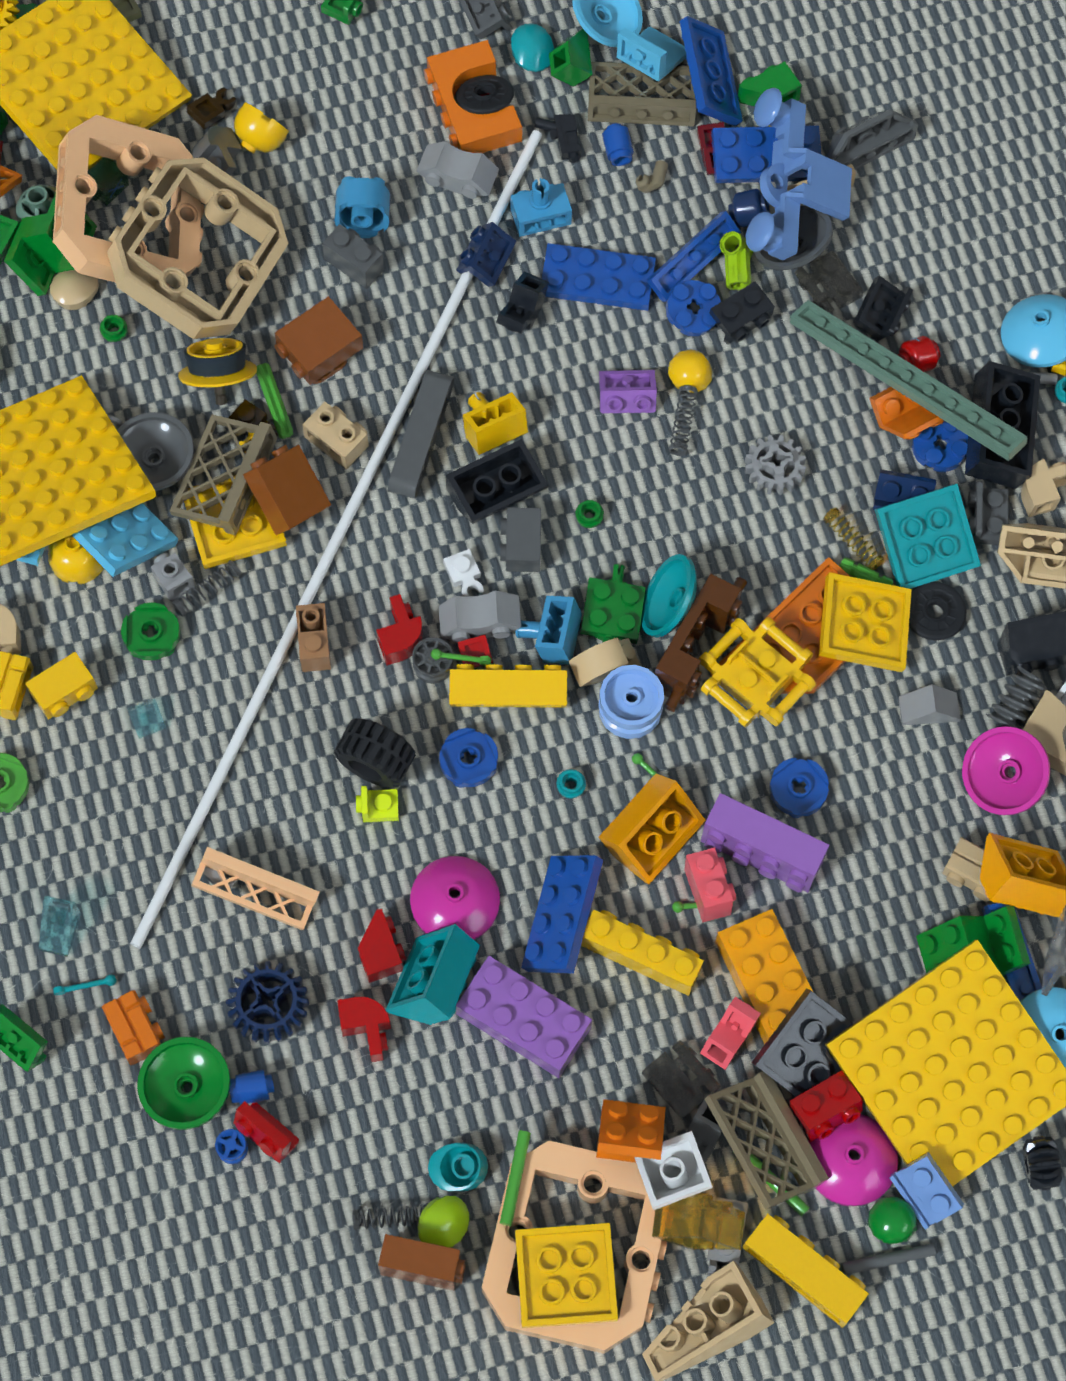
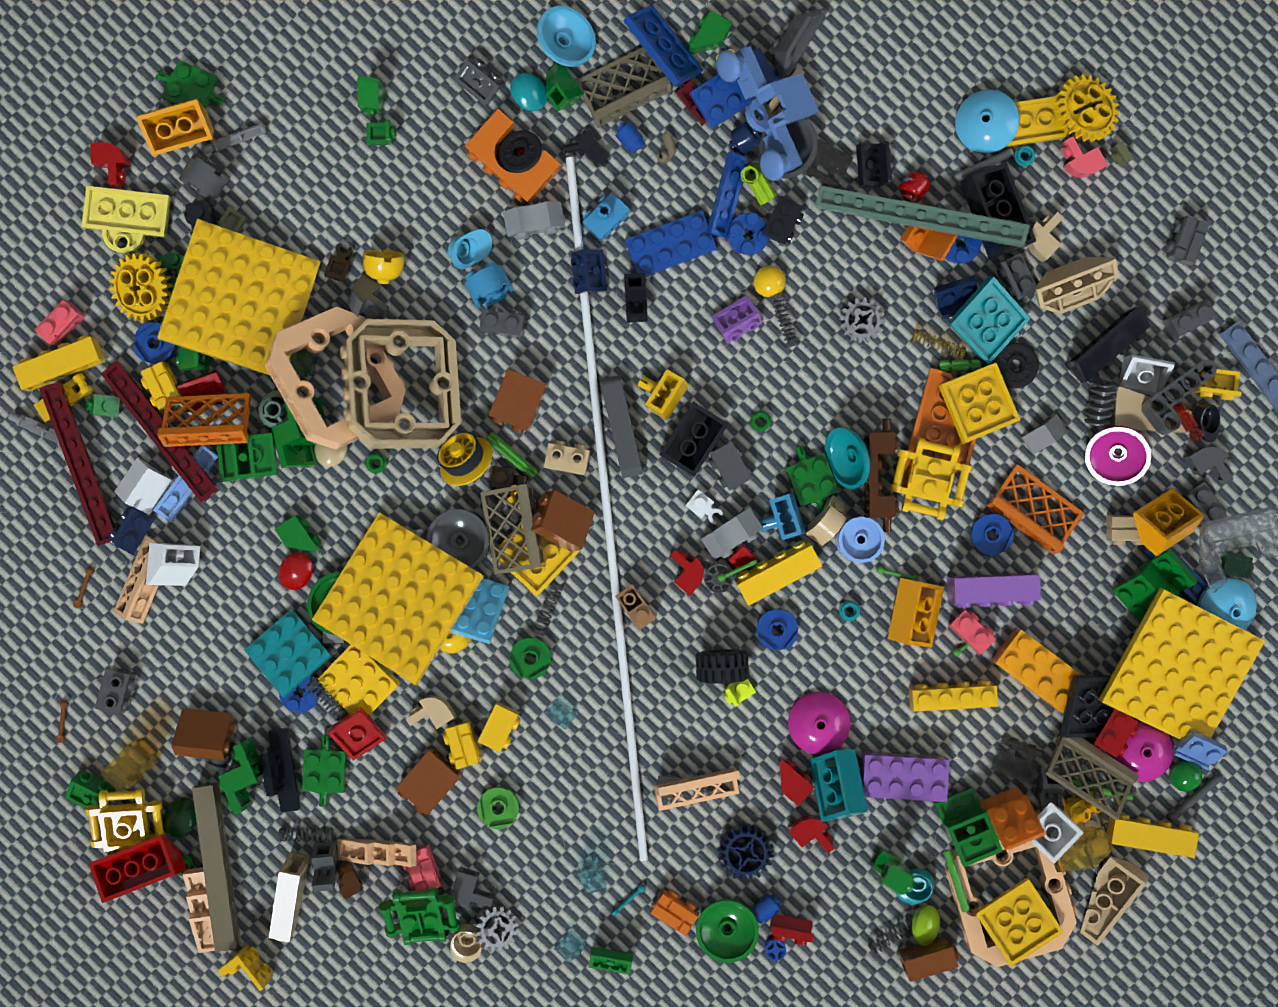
camera: 30 degrees left, 20 degrees up
(175, 583) = (528, 613): light grey brick -> none
(367, 160) = (469, 248): none -> medium azure piece
(438, 1107) = (892, 871): none -> green arch
(562, 914) = (893, 701): blue plate -> none
(569, 1120) = (968, 827): none -> green bracket
(650, 52) = (614, 52): medium azure bracket -> none
(730, 1033) = (1033, 718): coral brick -> none
(730, 1181) = (1080, 809): none -> yellow hips
(851, 802) = (1030, 526): none -> orange fence
(1042, 1163) = (1260, 695): black gear -> none

